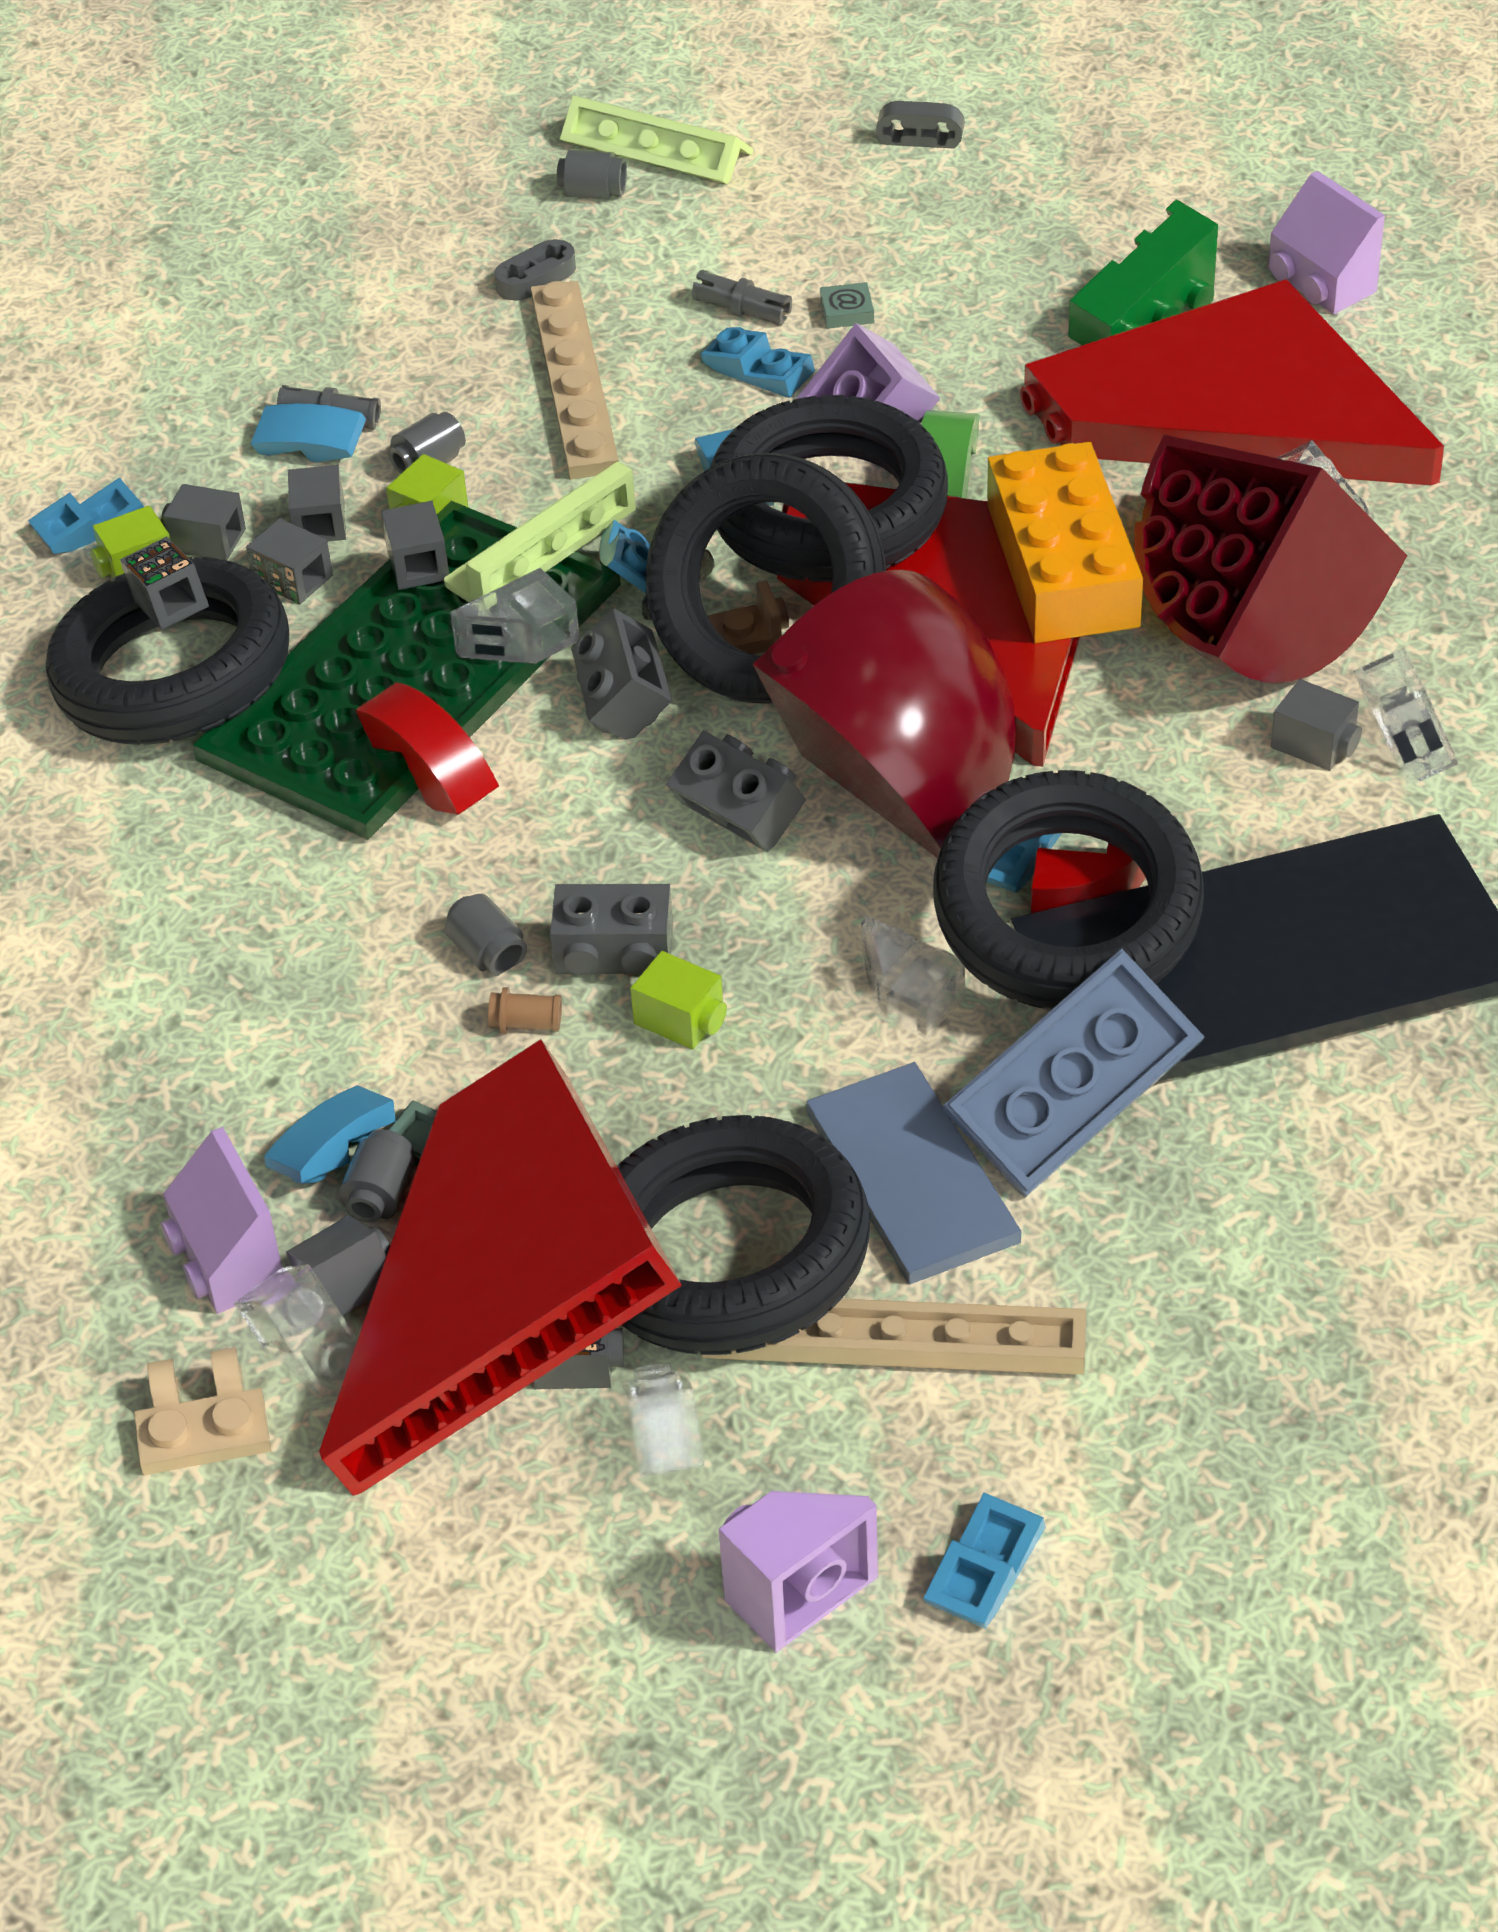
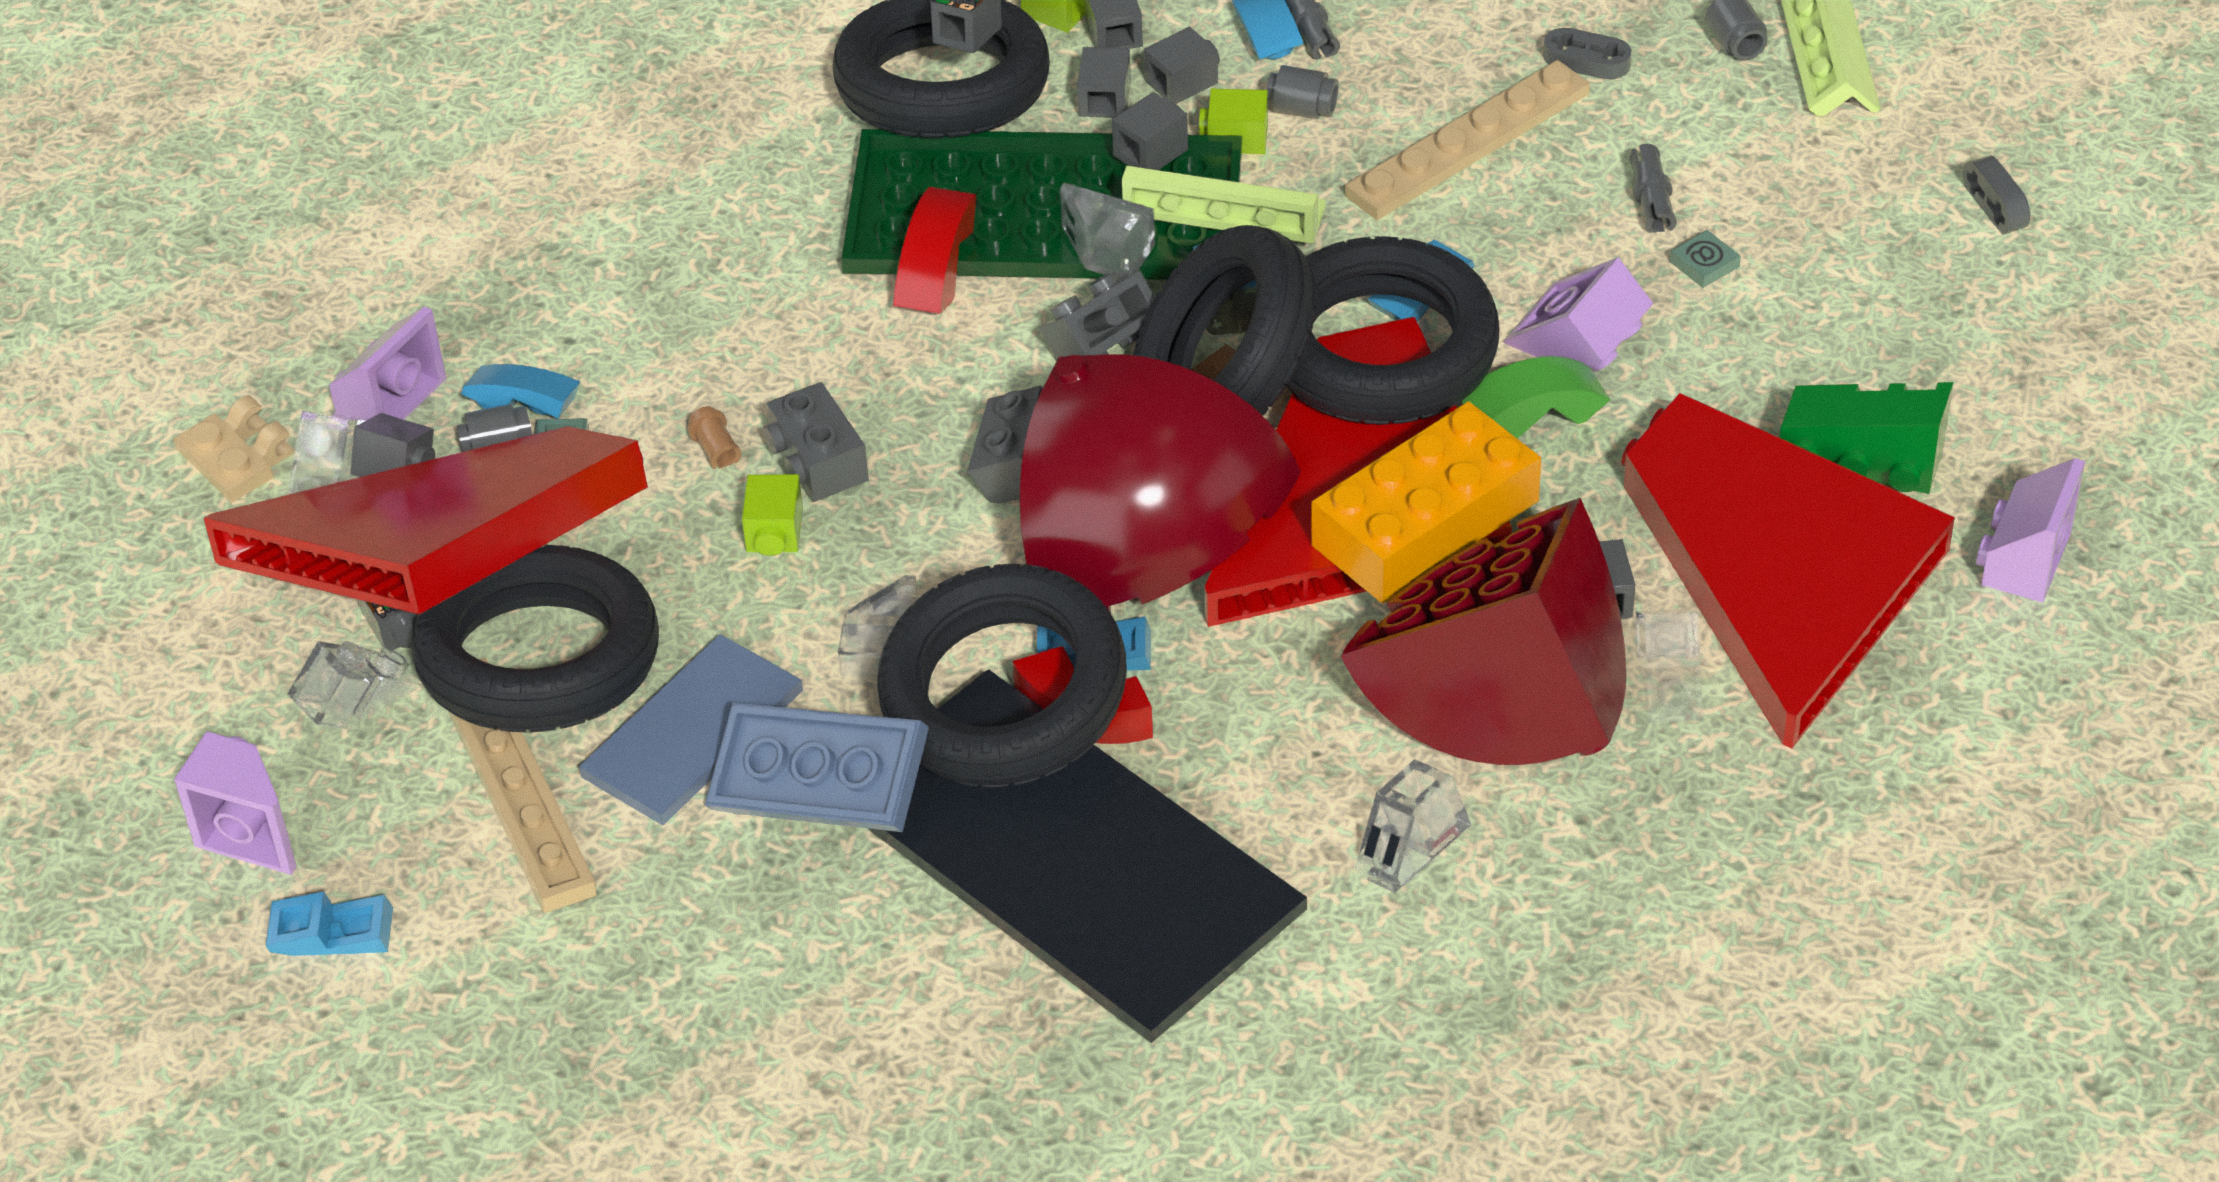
camera: 60 degrees right, 0 degrees up
(485, 934) = (776, 373): dark grey brick -> none
(751, 360) = (1578, 233): dark azure slope -> none
(1316, 725) = (1362, 770): dark grey brick -> none

